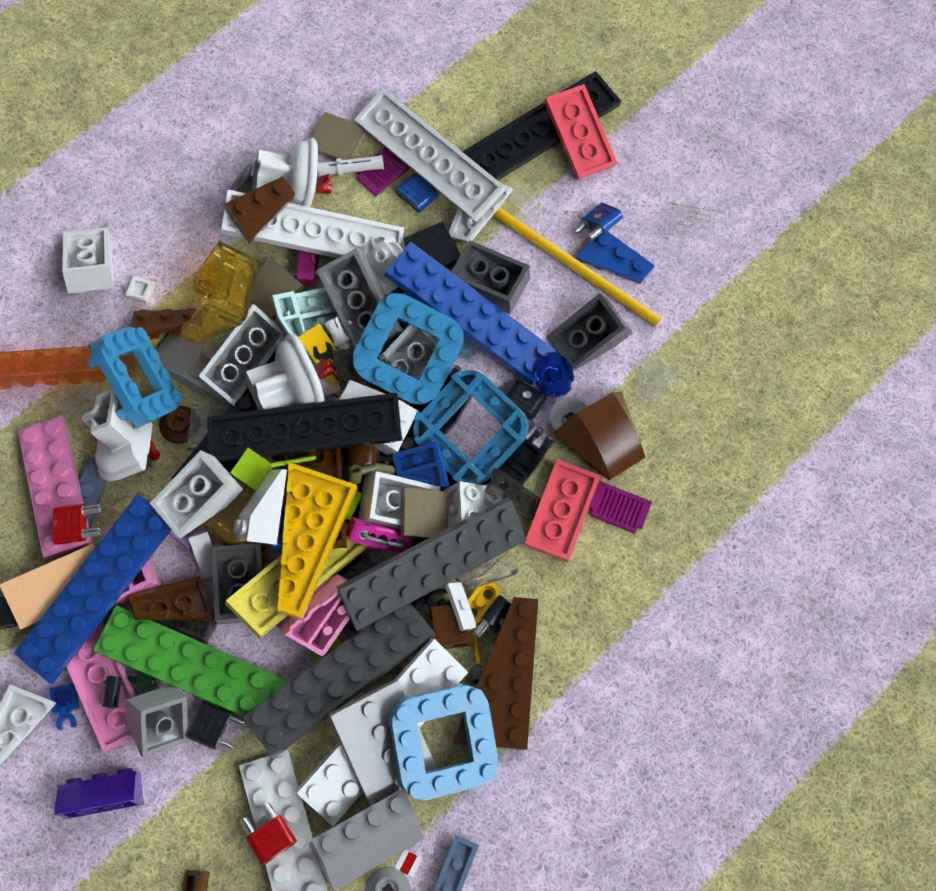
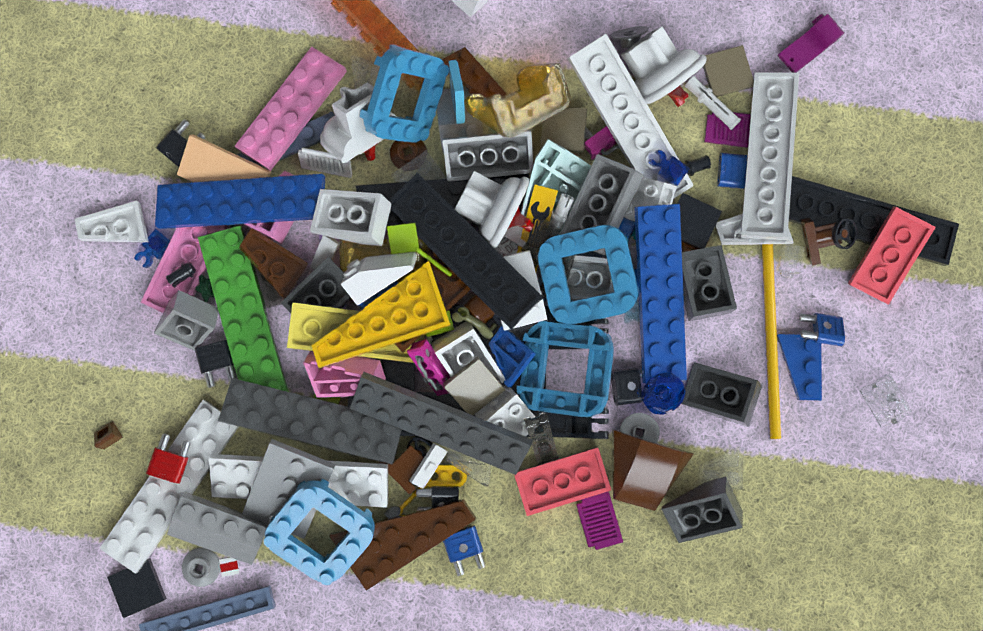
camera: 60 degrees right, 15 degrees up
(71, 523) = (267, 146): red piece -> none
(99, 794) = (110, 324): dark purple slope -> none
(120, 495) = (323, 162): none -> white window
(140, 289) = (485, 36): white tile -> none
(168, 337) = (456, 91): none -> medium azure tile
(258, 207) = (610, 68): reddish brown wing -> none
(367, 64) = (812, 43): none -> magenta door
(375, 230) = (671, 168): none -> clear blue plate
(390, 213) = (698, 165): none -> black pin
(526, 165) = (826, 236): none -> reddish brown piece
(552, 634) = (464, 545): none -> blue piece
(674, 416) = (704, 511): none -> dark grey slope

